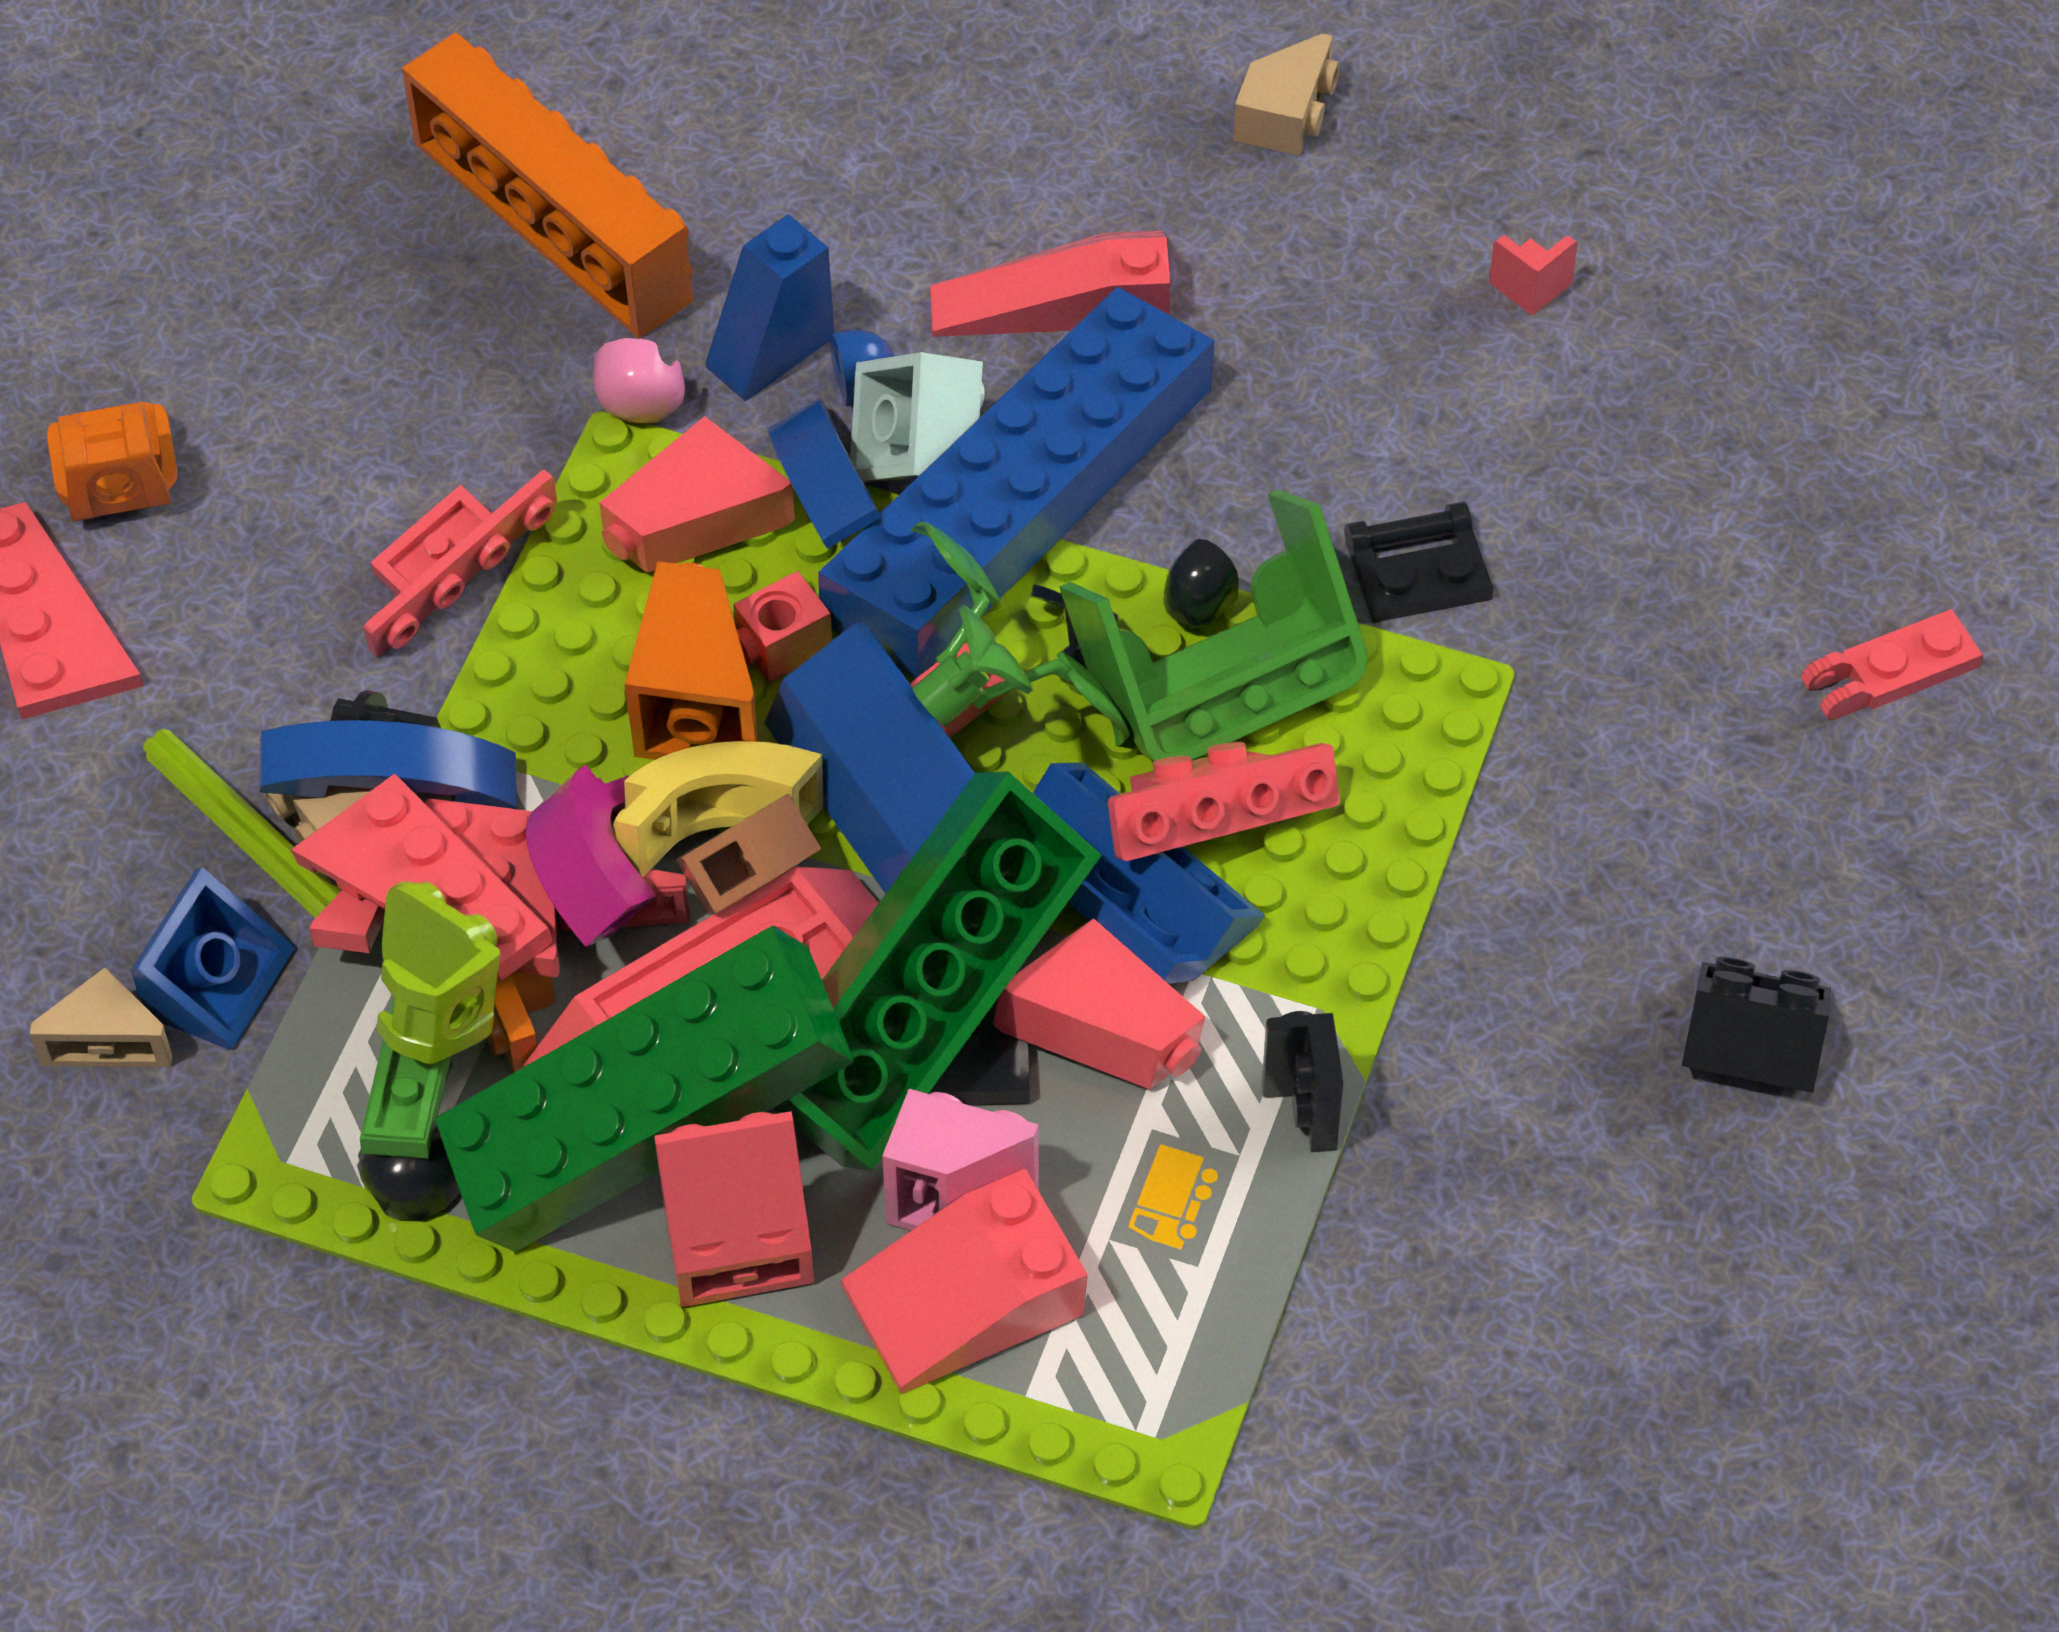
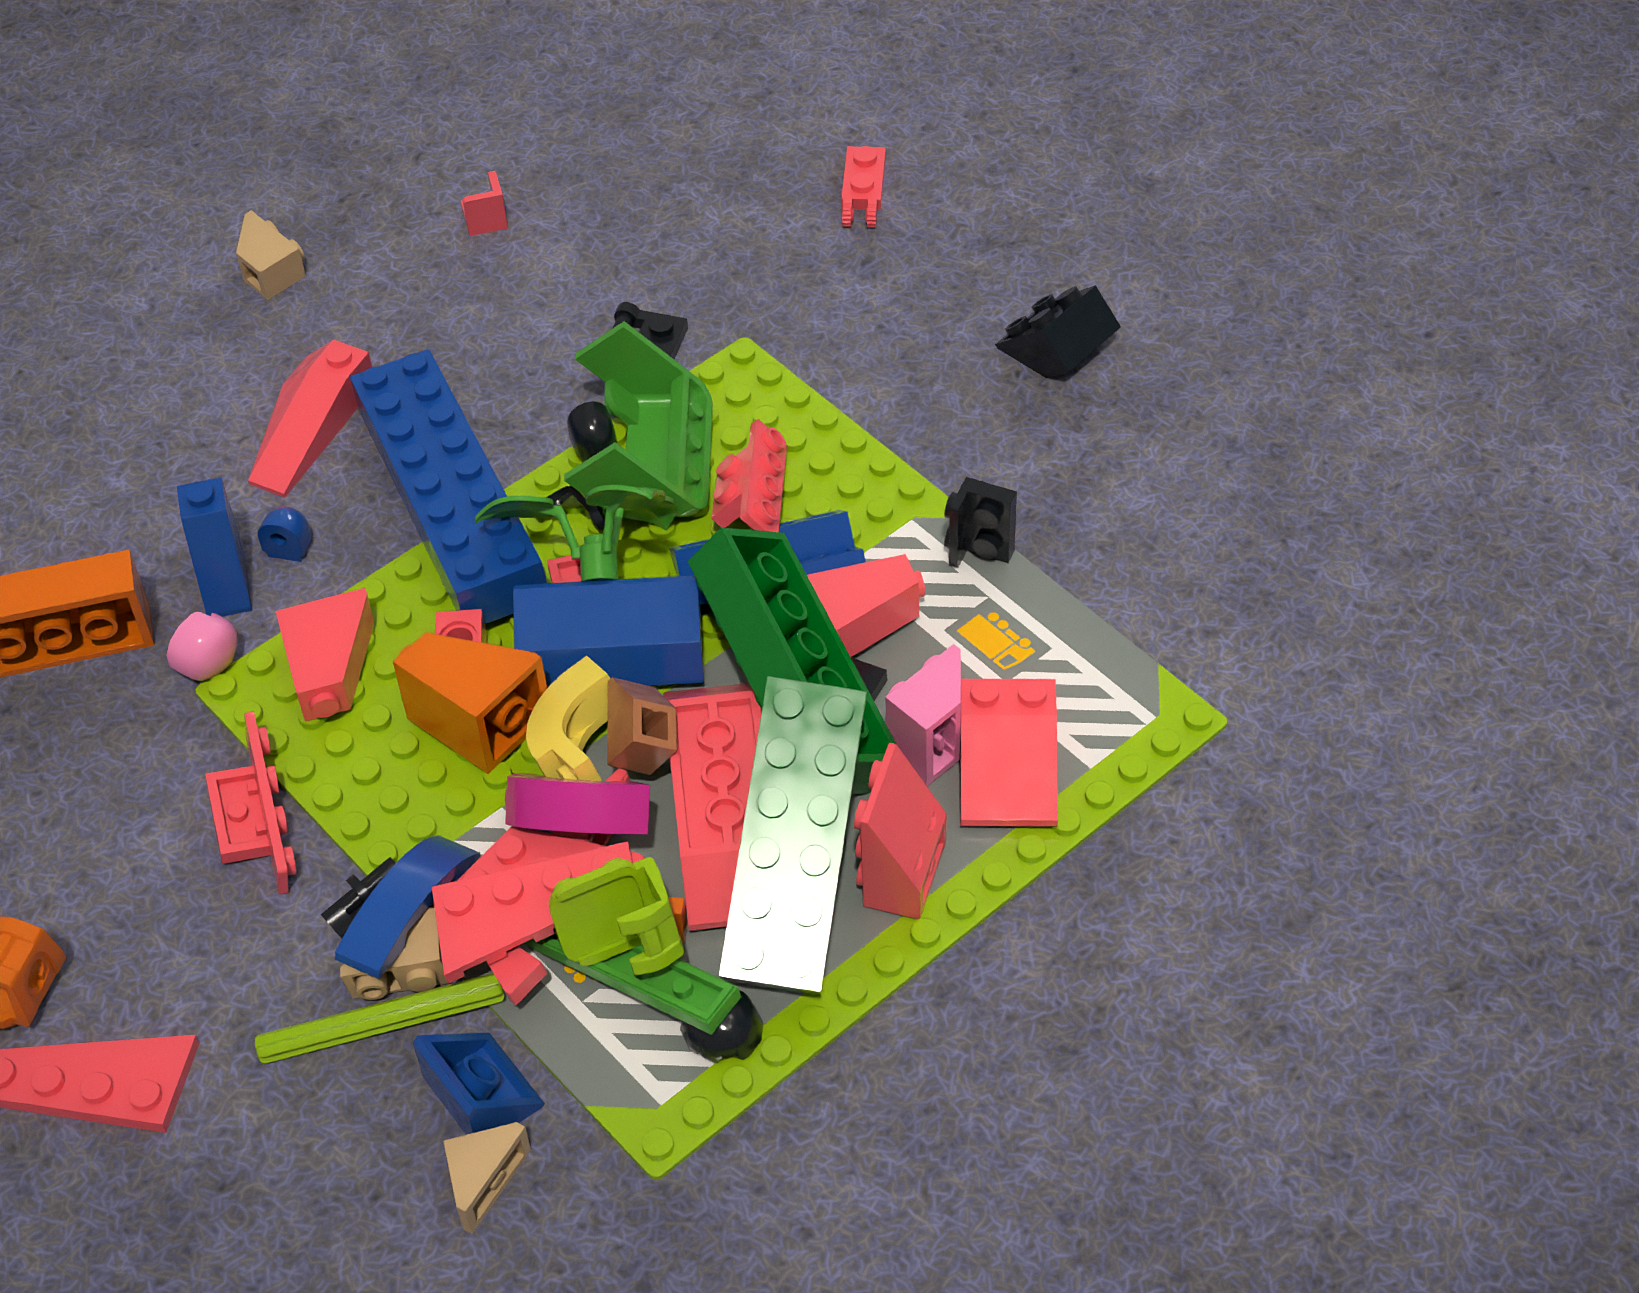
camera: 60 degrees left, 5 degrees down
(822, 473) = (364, 564): blue slope -> none
(911, 412) = (359, 515): light aqua slope -> none

